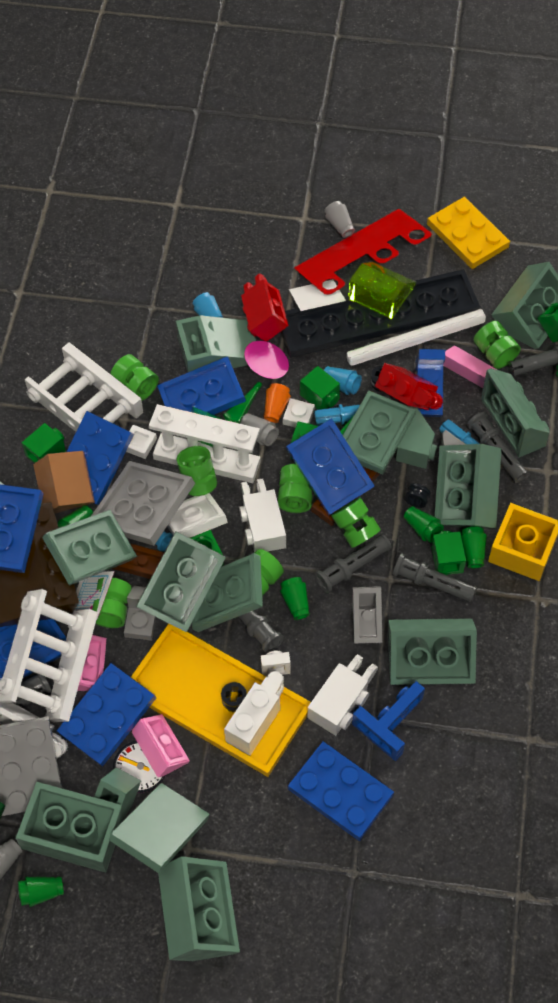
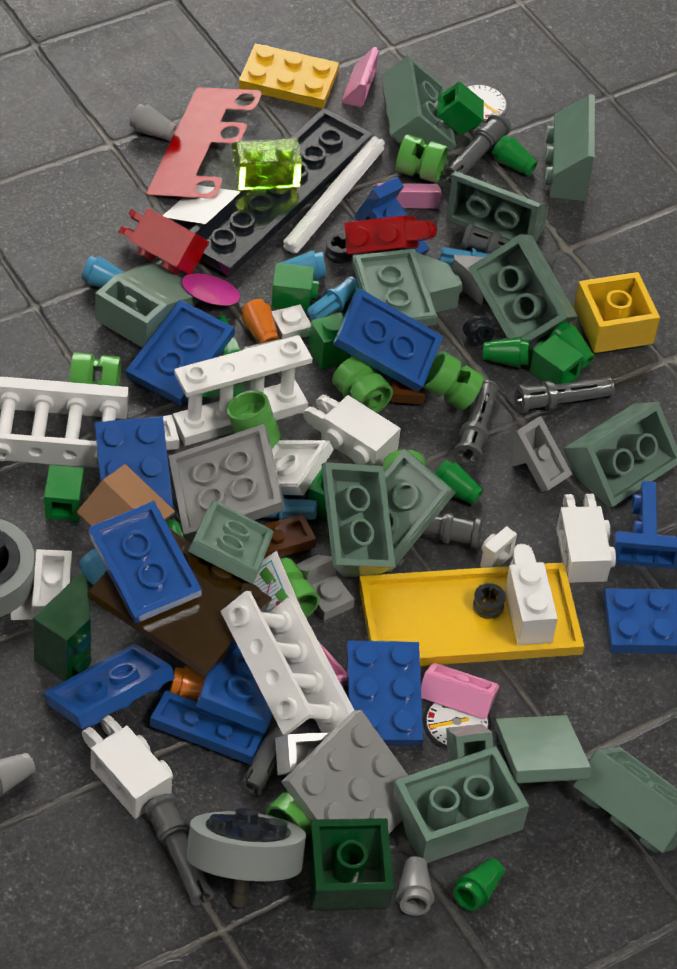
camera: 45 degrees left, 10 degrees down
(516, 263) = (361, 79): none -> bright pink slope

